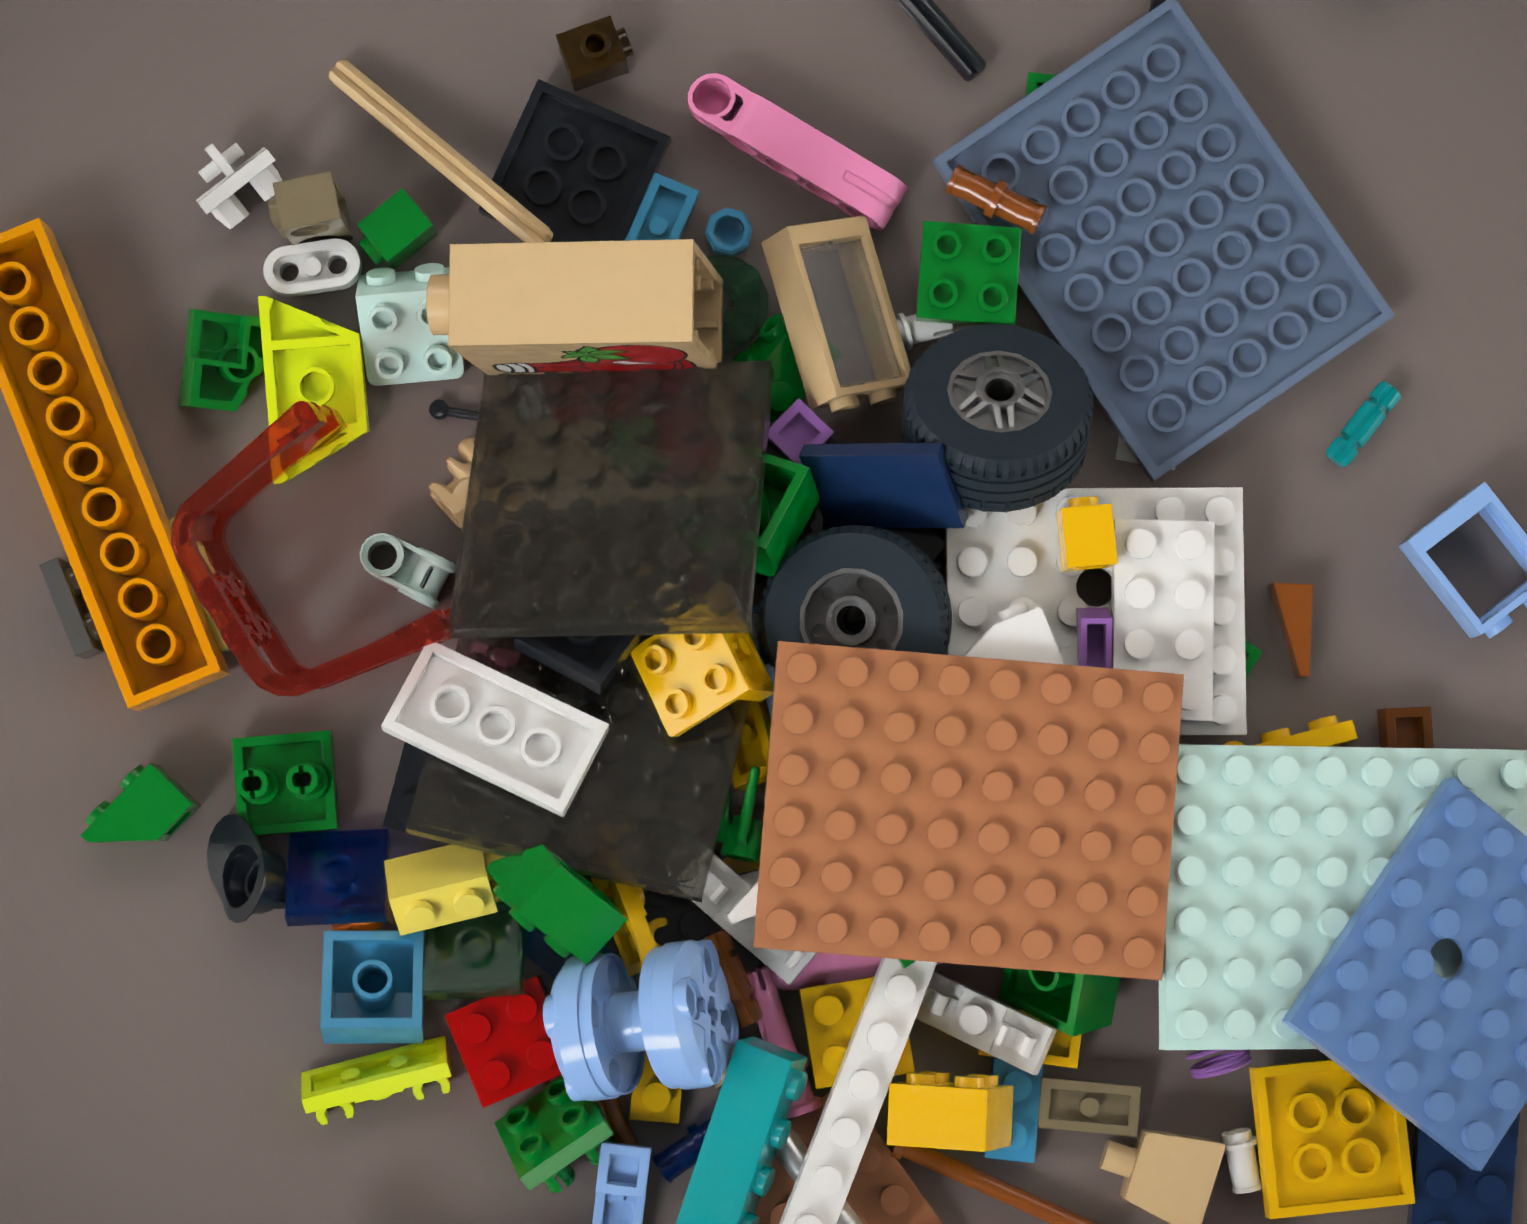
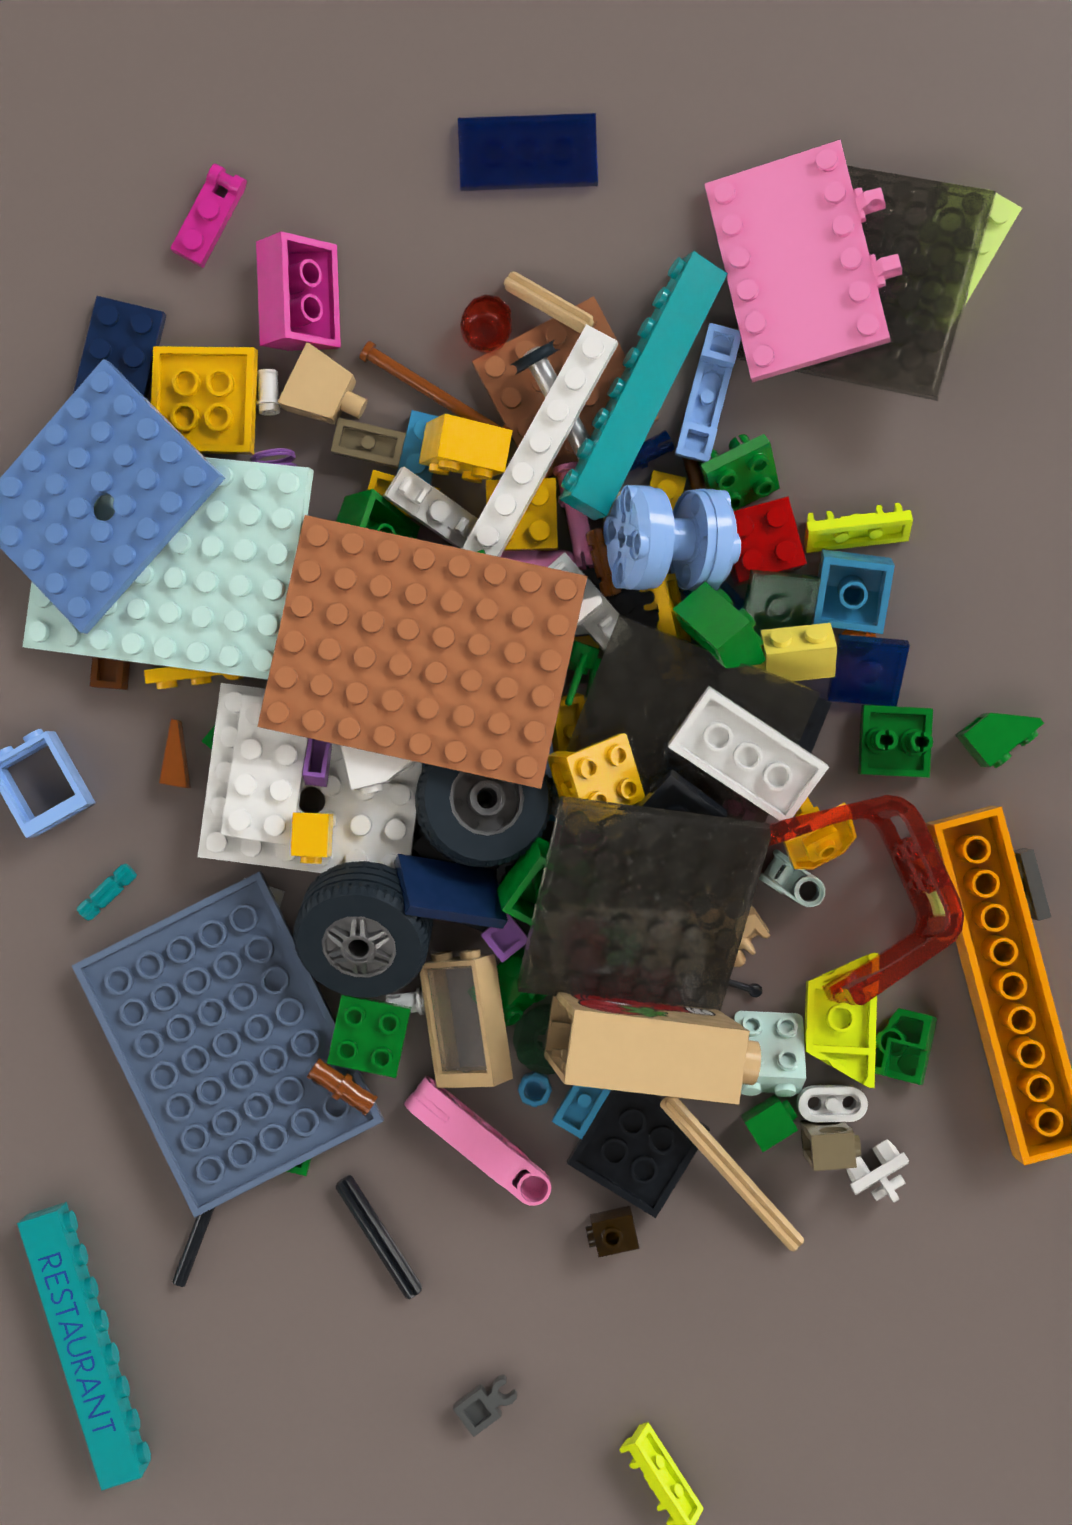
camera: 175 degrees left, 5 degrees up
(244, 871) = (931, 682): black piece -> none
(375, 618) = (819, 845): none -> yellow piece

